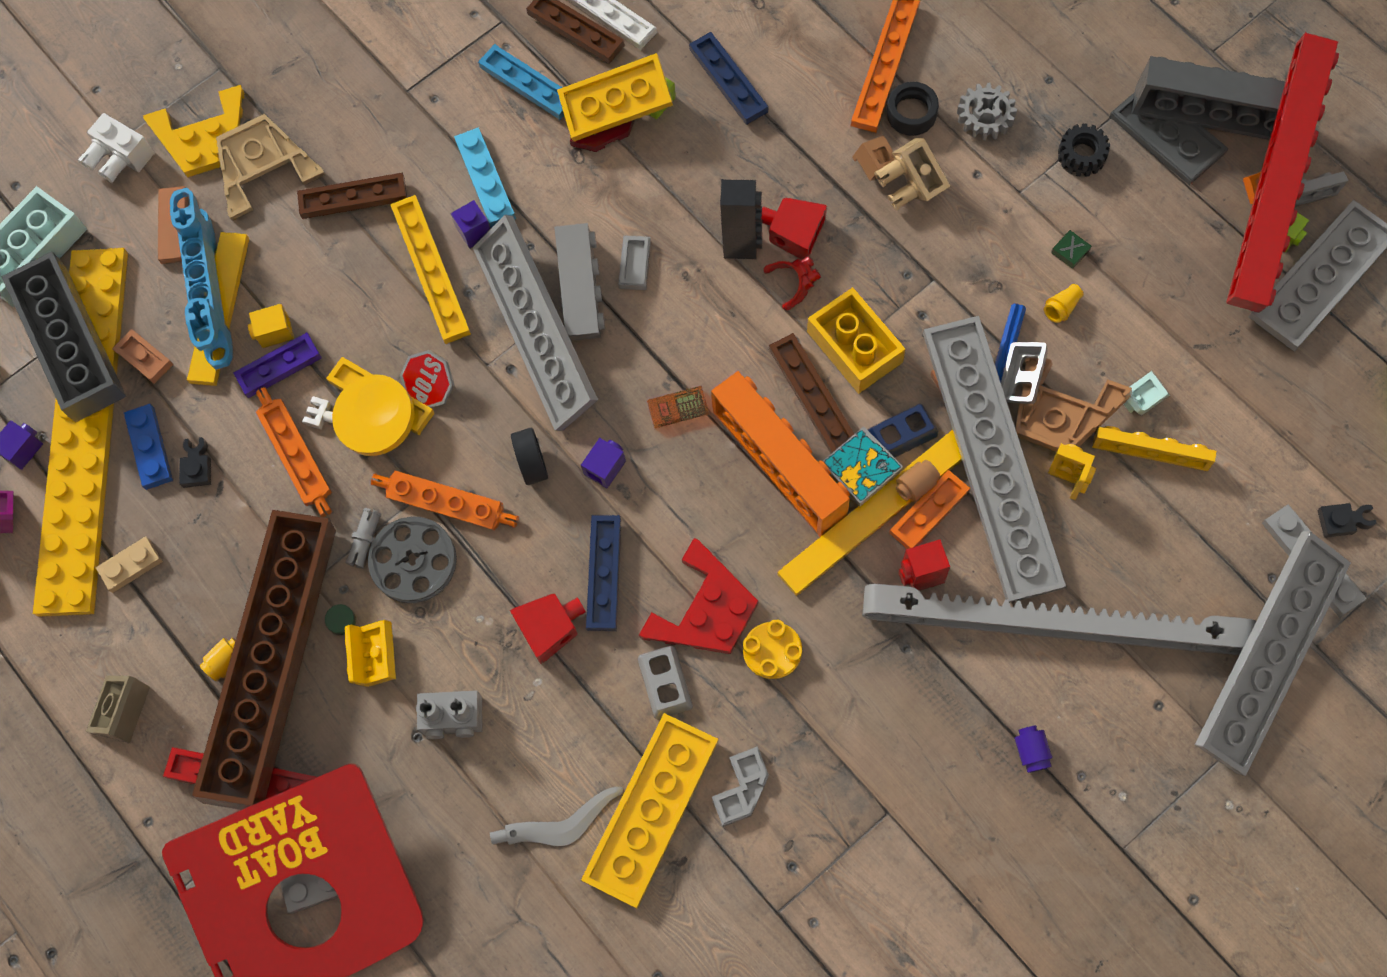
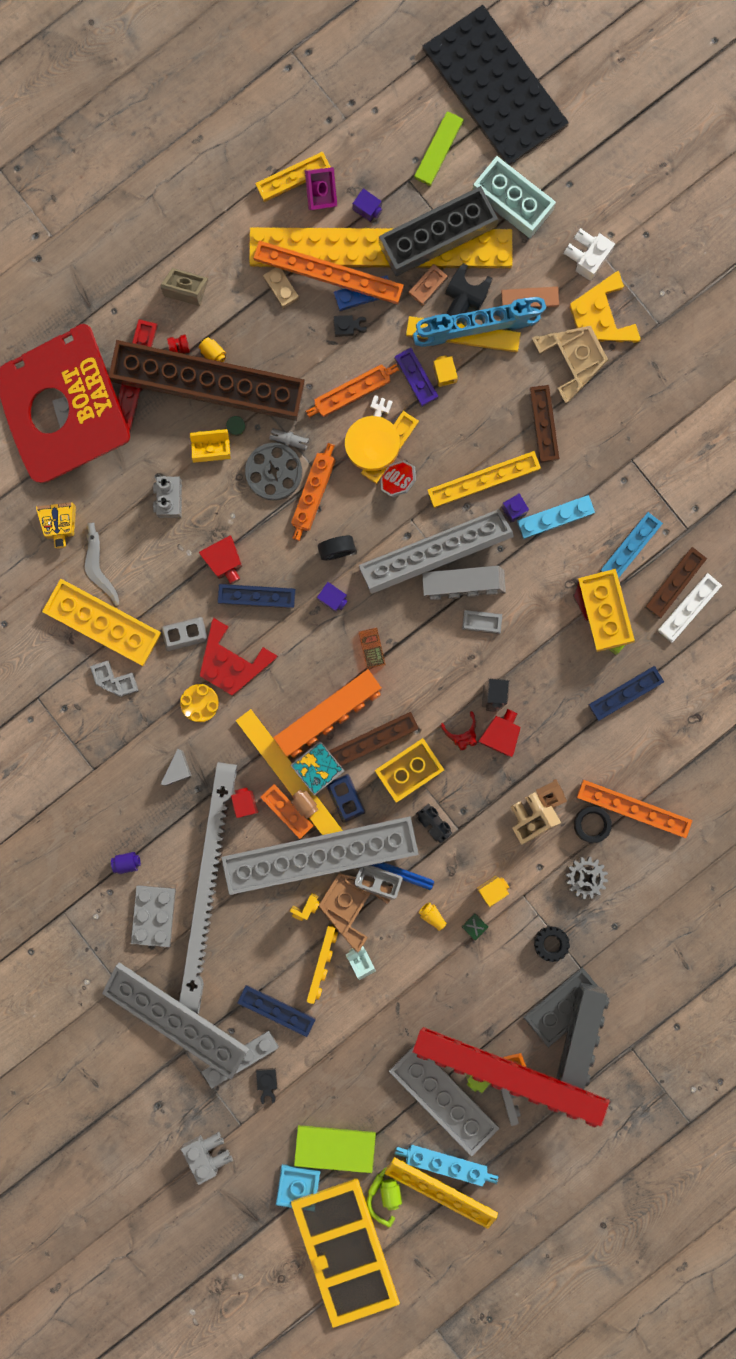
camera: 85 degrees right, 15 degrees up
(110, 491) = (328, 272): none -> orange plate
(158, 305) = (465, 293): none -> black connector
(206, 707) = (182, 344): none -> red wheel
(488, 891) = (57, 522): none -> torso
(878, 675) = (177, 770): none -> light grey slope
(920, 314) = (440, 829): none -> black hinge
(1019, 219) = (493, 890): none -> yellow brick
(1111, 703) = (153, 916): none -> light grey plate
(1232, 510) = (276, 1010): none -> dark blue plate

